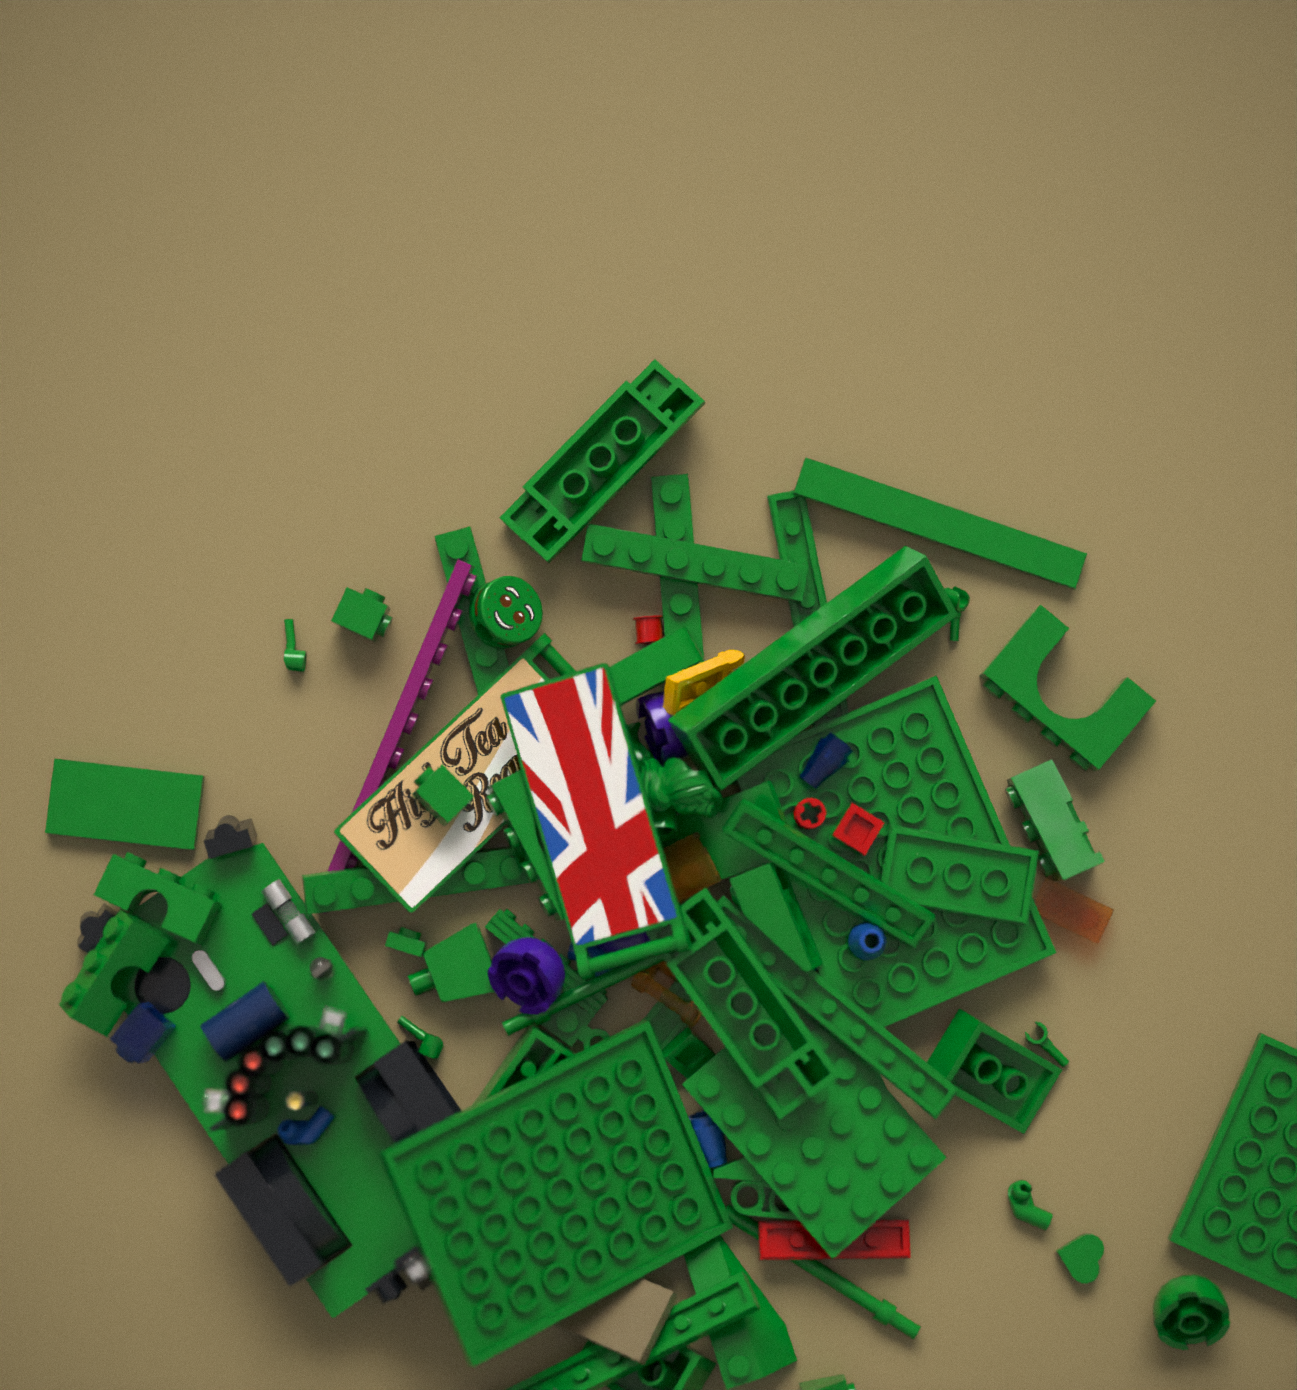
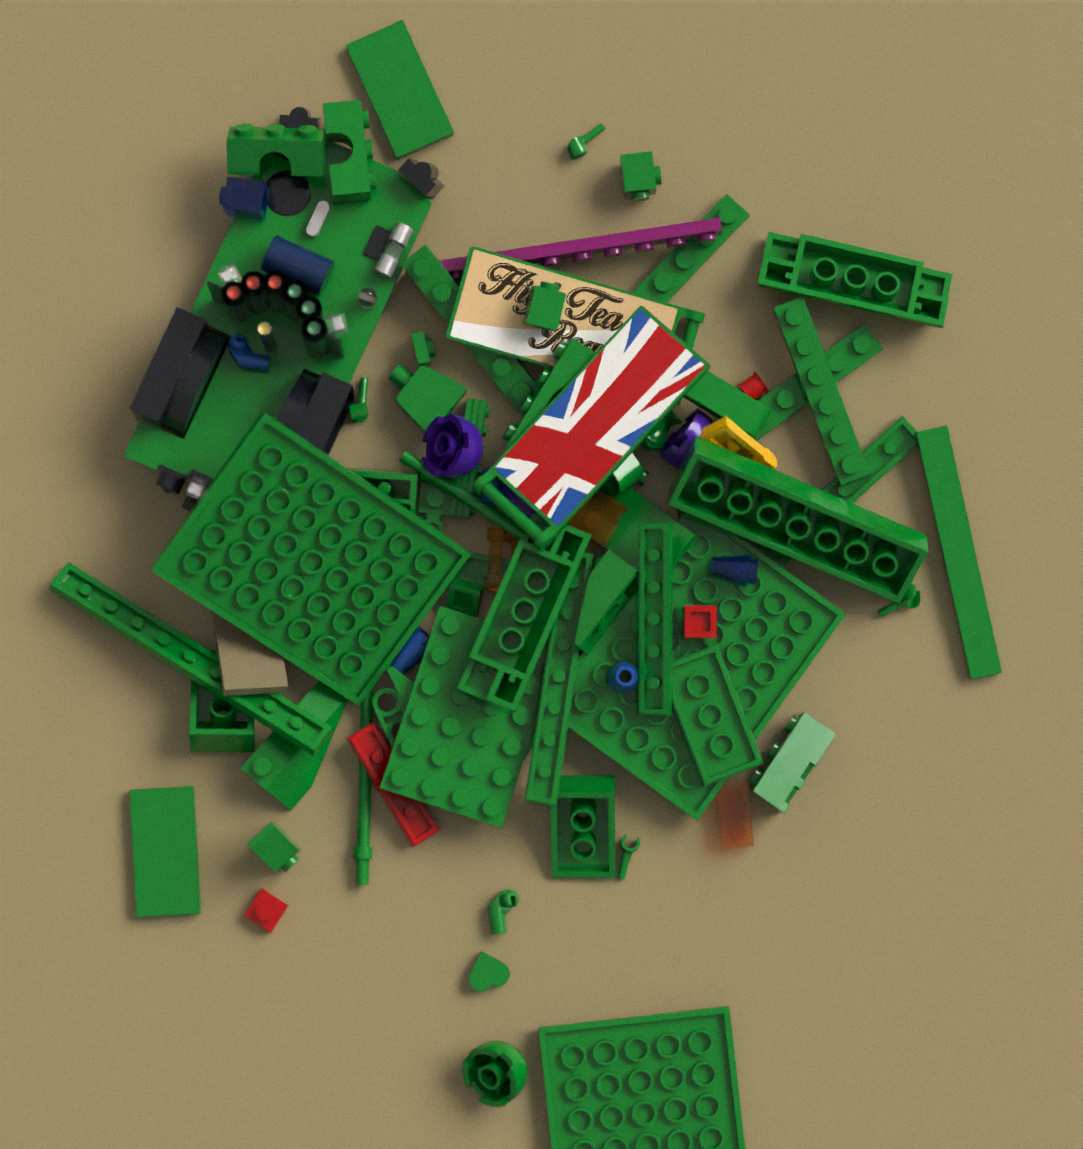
camera: 55 degrees right, 0 degrees up
(505, 612) = (702, 276): green head -> none
(679, 788) = (651, 474): green hair -> none
(812, 802) = (699, 579): red axle -> none
(1015, 677) = (867, 752): green arch -> none

